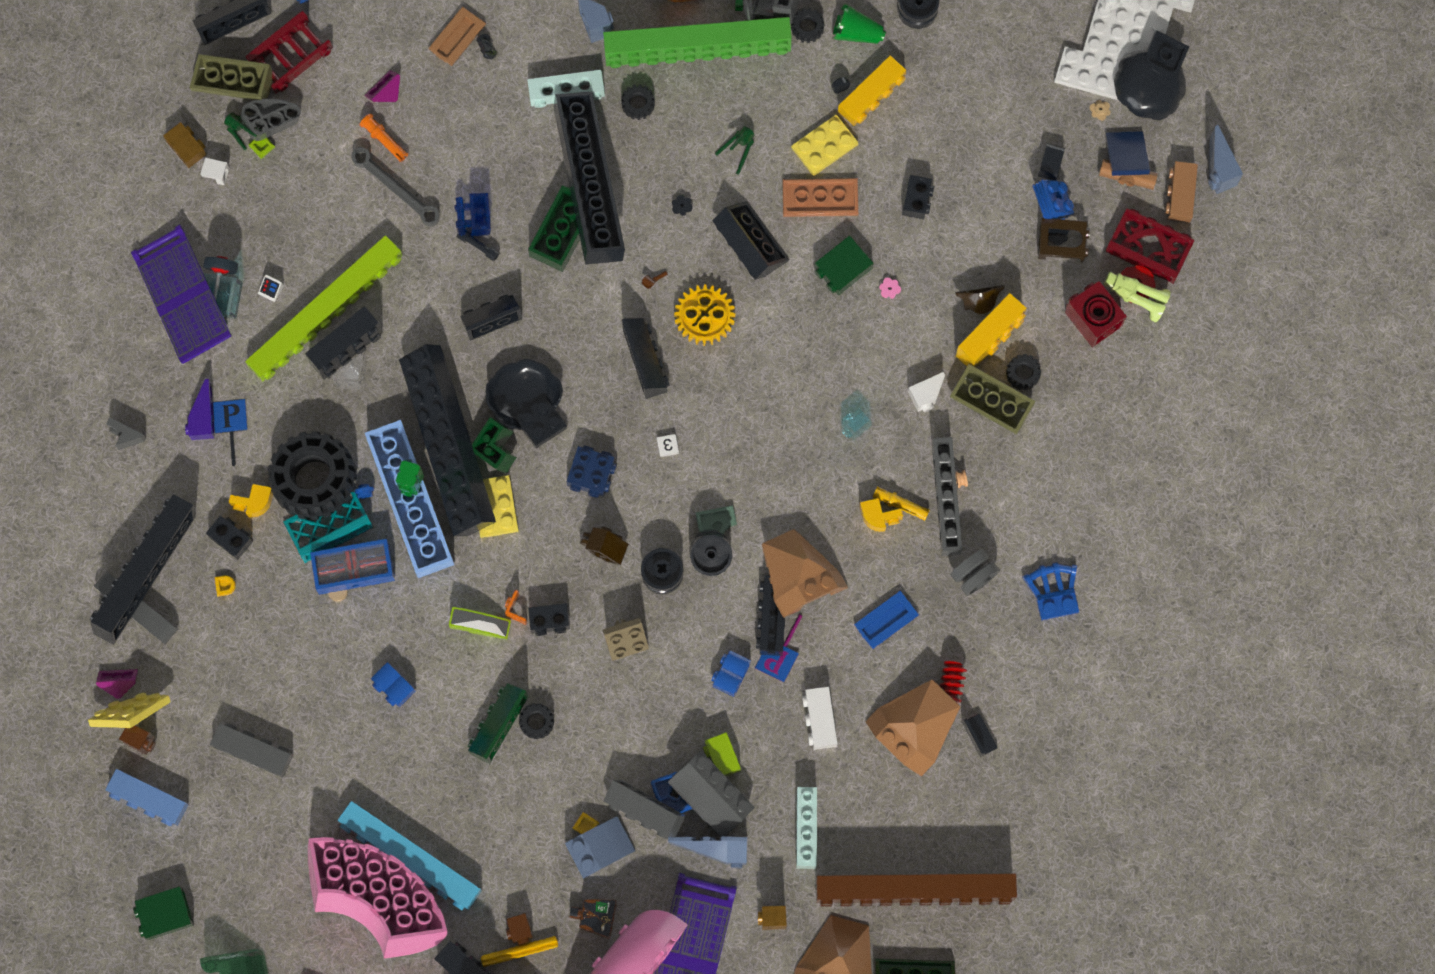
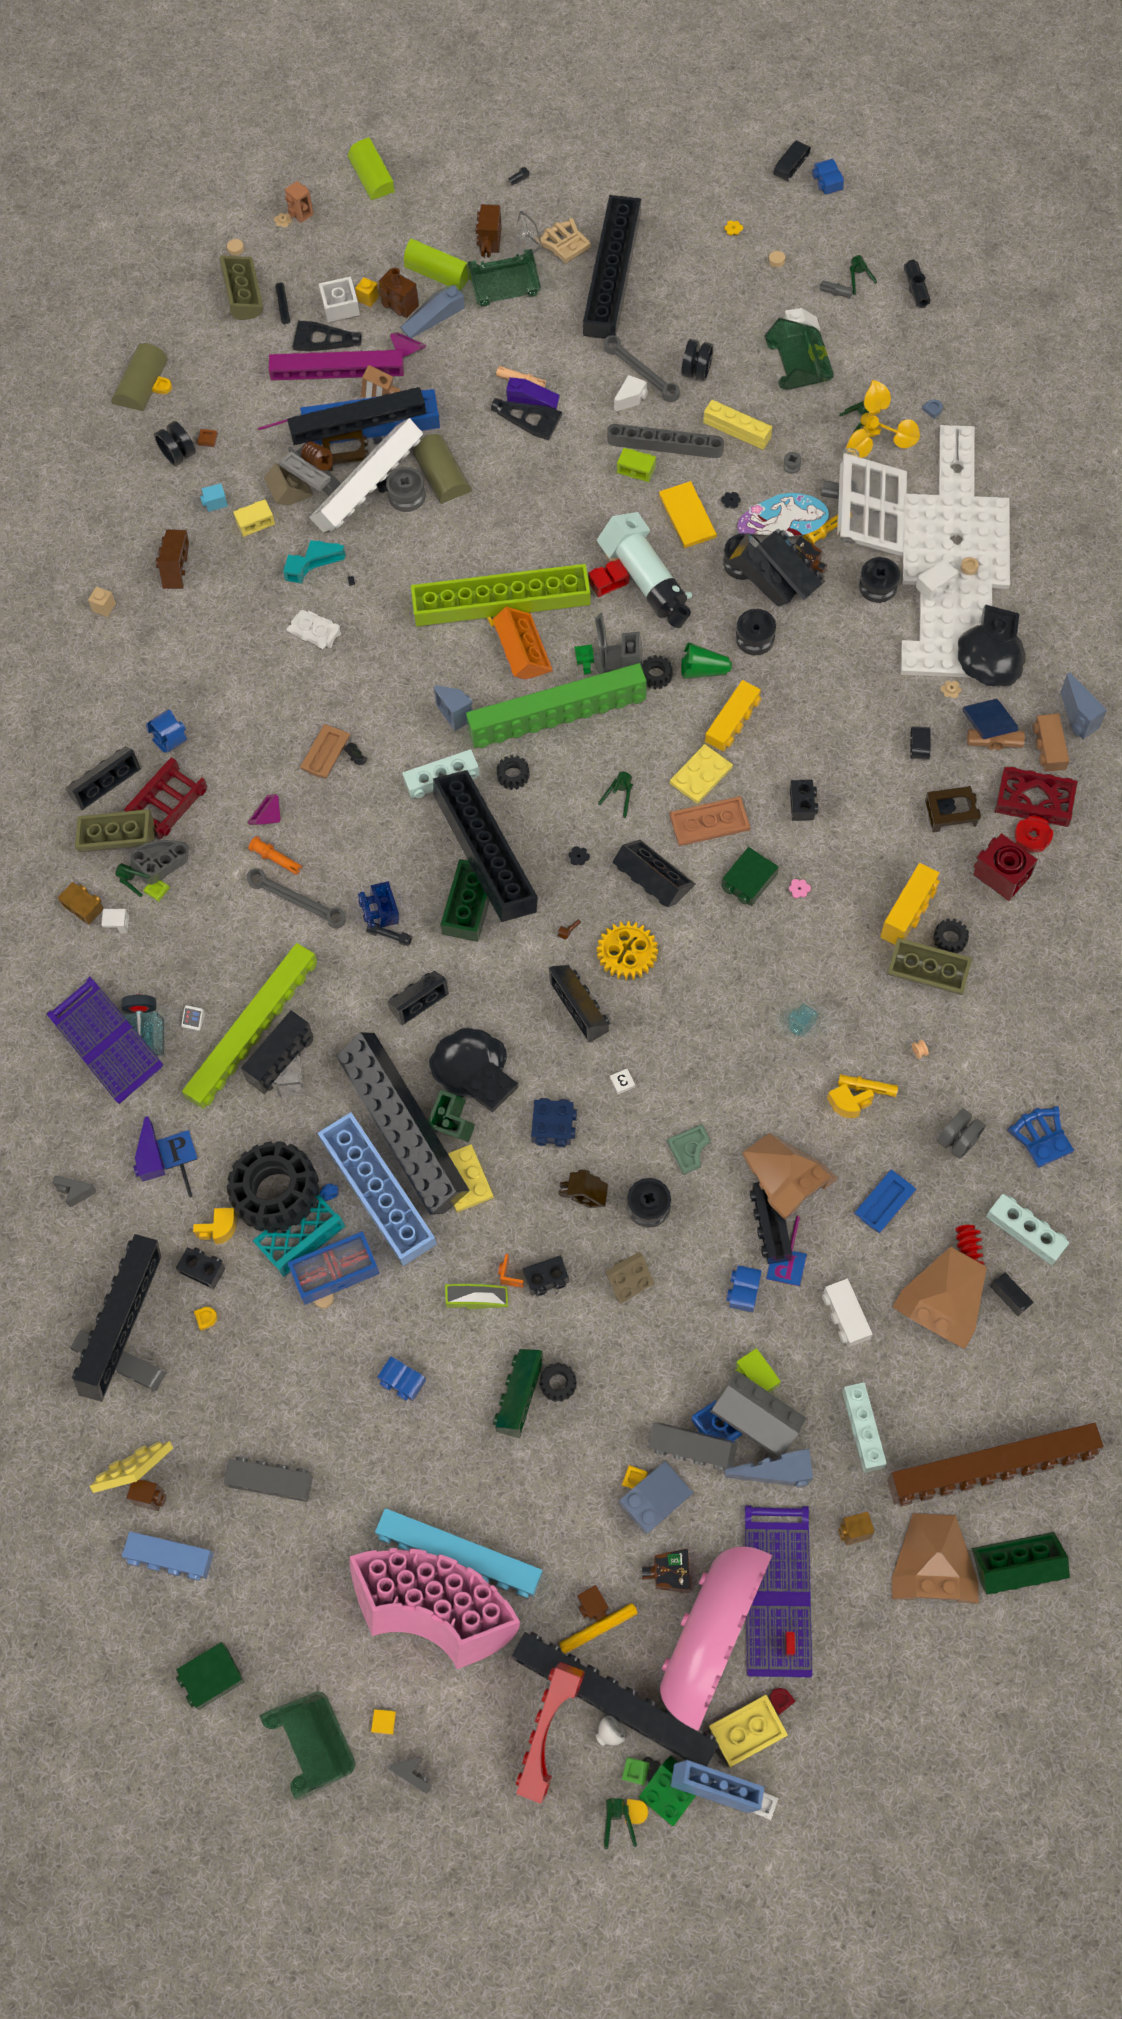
camera: 10 degrees left, 10 degrees down
(117, 681) = (113, 1441): magenta slope -> none
(409, 478) = (373, 1164): green brick -> none
(708, 541) = (705, 1174): black wheel -> none
(840, 85) = (701, 717): black tile -> none
(926, 392) = (862, 976): white slope -> none
(946, 496) = (912, 1068): dark grey brick -> none
(980, 300) = (890, 880): dark brown hat -> none
(1013, 689) = (1016, 1229): none -> light aqua brick
(1053, 199) = (933, 773): blue brick -> none
(1126, 289) = (1028, 838): yellowish green piece -> none

